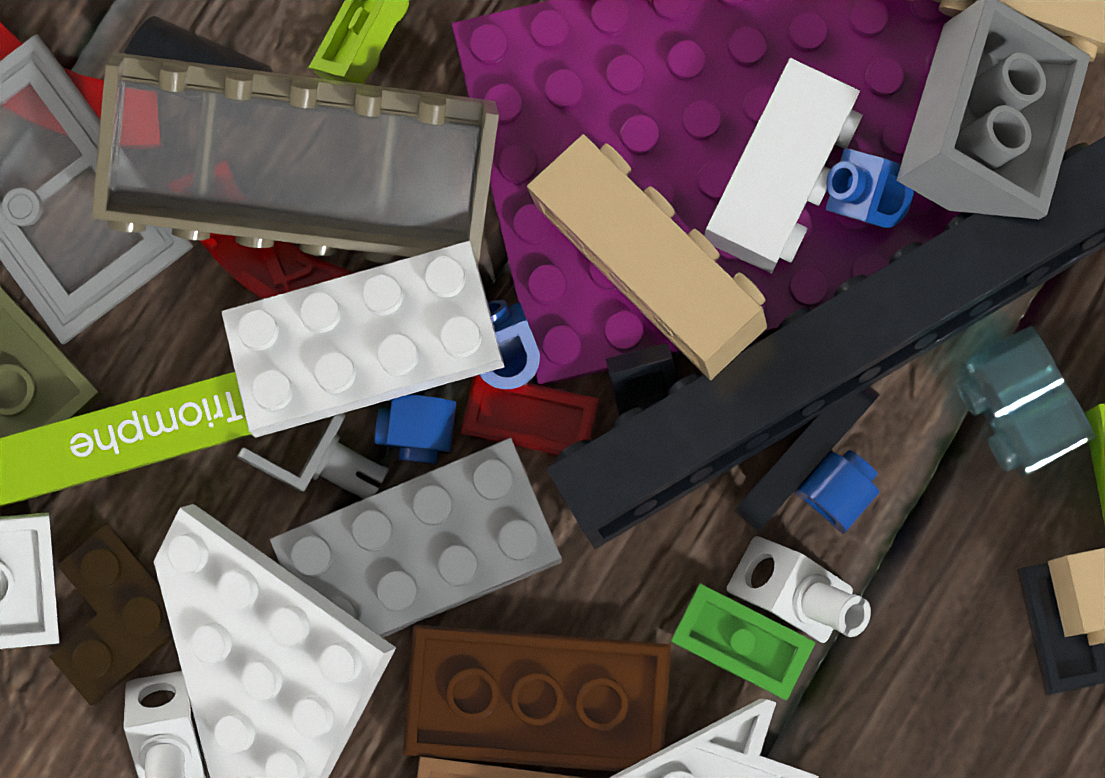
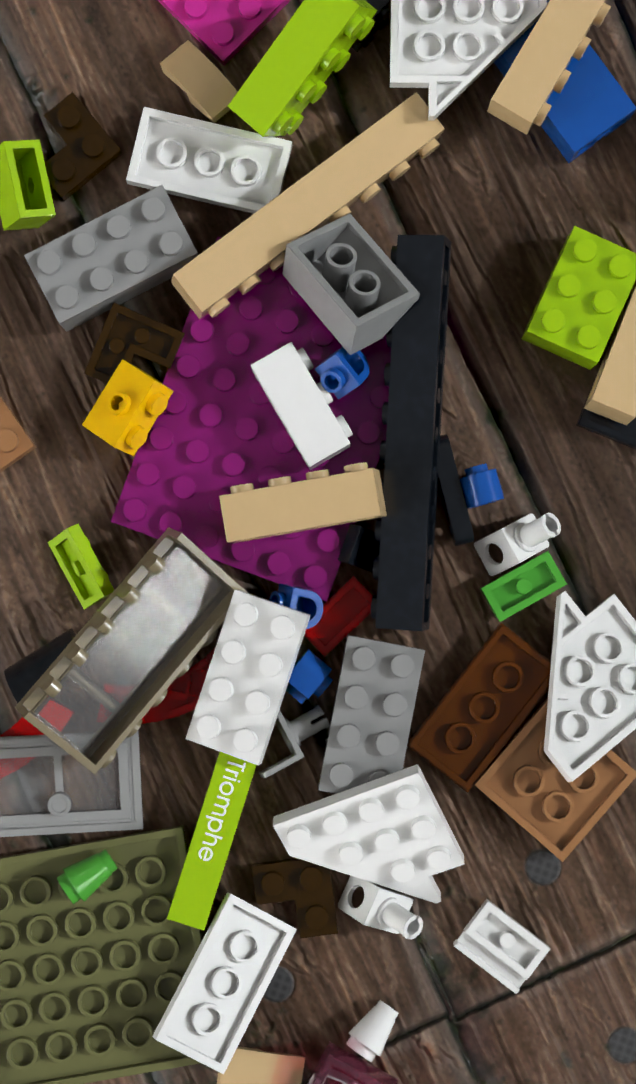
camera: 55 degrees left, 5 degrees up
(1024, 403) = (499, 365): clear light blue brick -> none

